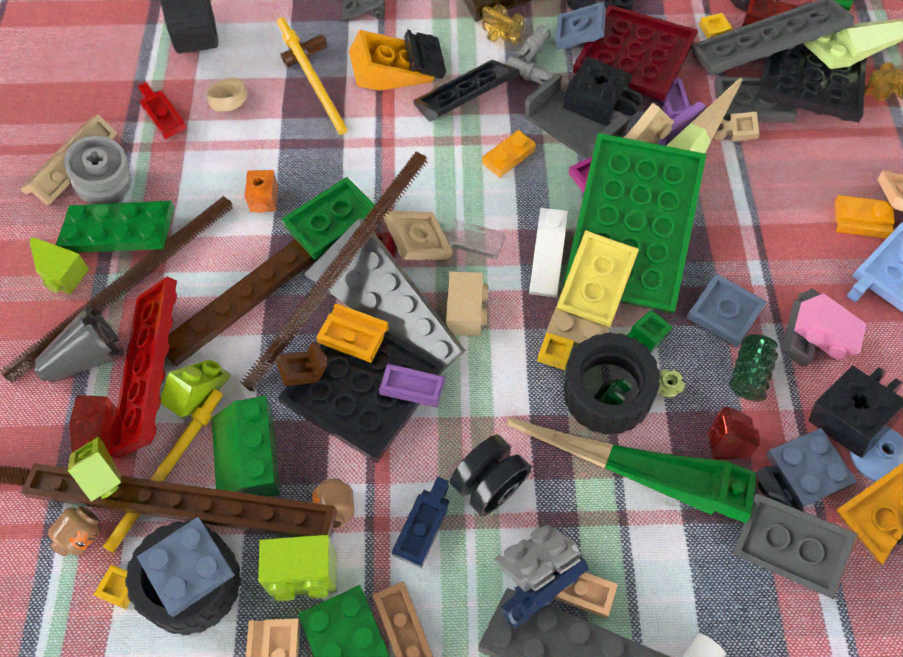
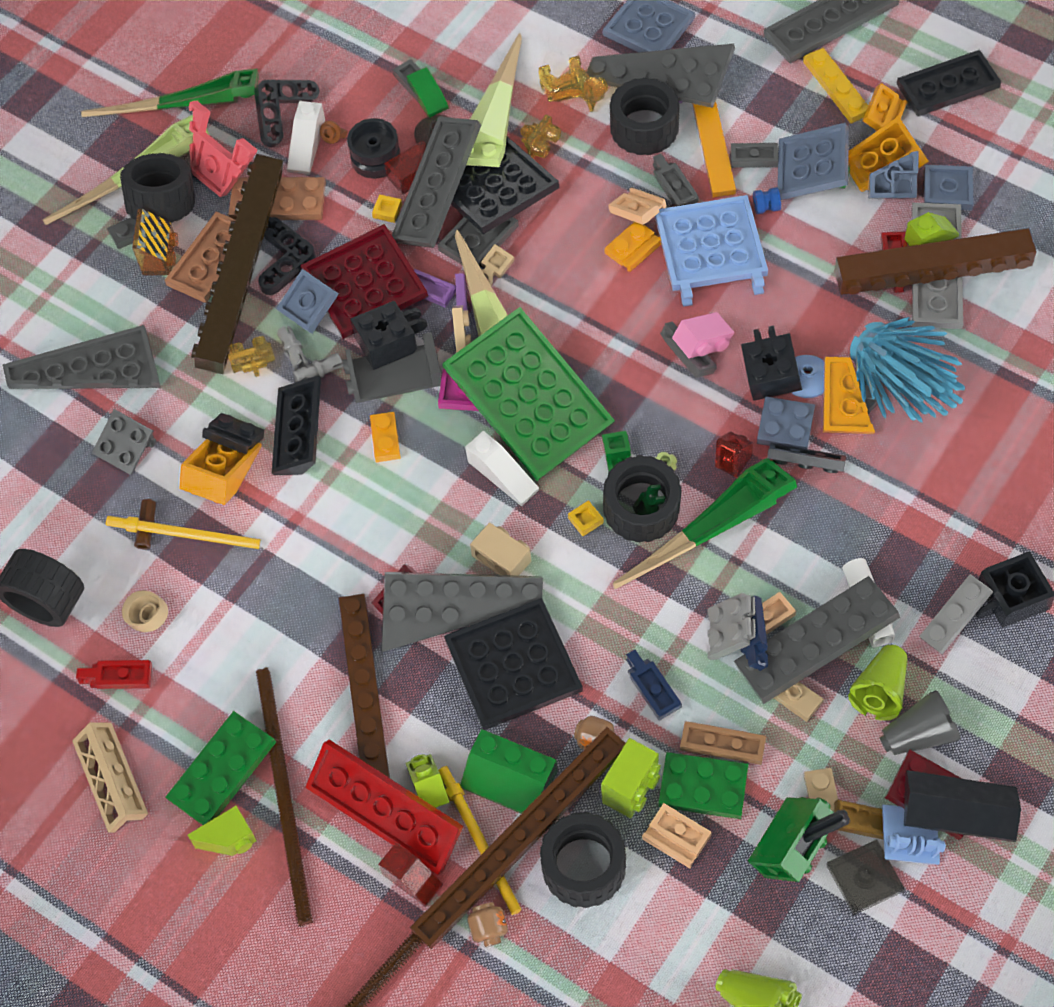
camera: 50 degrees left, 0 degrees up
(79, 347) = (328, 849): dark grey cone -> none
(94, 470) = (455, 874): lime slope -> none
(98, 169) = (153, 751): light grey wheel -> none
(113, 587) = (550, 917): yellow tile -> none
(185, 566) = (585, 842): sand blue plate -> none
(261, 191) = (276, 638): orange brick -> none
(302, 366) = (474, 689): reddish brown bracket -> none
(327, 217) = (352, 598): green plate -> none
(332, 272) = (415, 619): reddish brown axle -> none
(352, 332) = (471, 641): light orange plate -> none
(412, 385) = (544, 628): medium lavender tile -> none
(418, 235) = (416, 547): tan plate -> none
(475, 238) = (445, 511): clear tile -> none
(490, 474) = (653, 617): black wheel -> none
(574, 327) = (585, 489): tan plate -> none
(597, 279) = (553, 451): light yellow tile -> none
(726, 310) = (638, 387): sand blue plate -> none
(754, 367) = (694, 403): clear green piece -> none
(796, 545) = (830, 469): dark grey plate -> none

